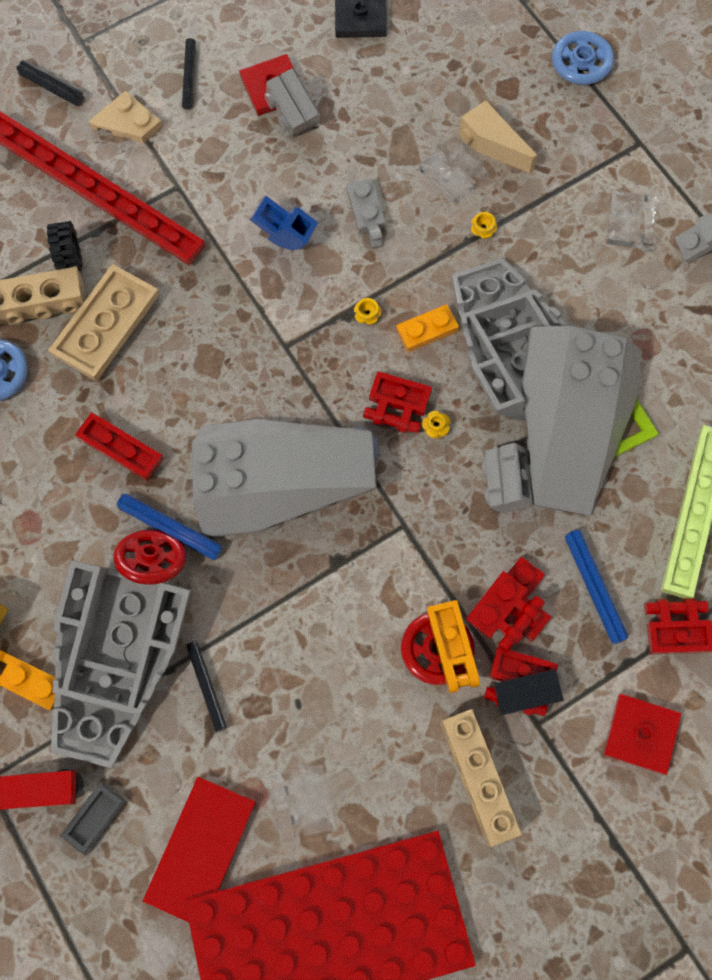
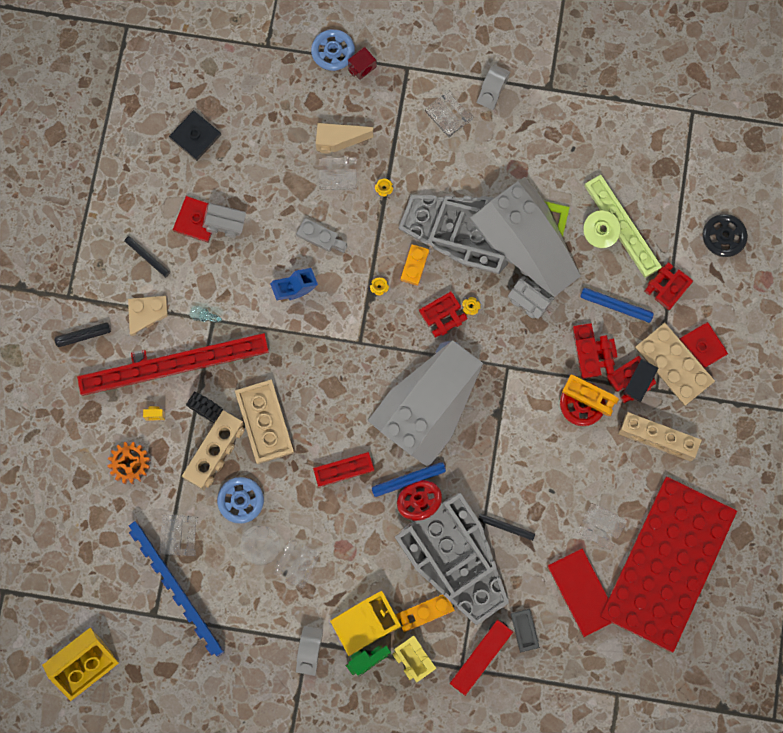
camera: 50 degrees left, 5 degrees up
(18, 209) = (153, 413): none -> yellow plate
(75, 150) = (138, 356): none -> sticker
(171, 168) = (199, 314): none -> clear light blue bar
(589, 719) = (675, 364): none -> tan plate
(596, 93) = (361, 63): none -> dark red brick
(660, 480) = (593, 231): none -> yellowish green dish

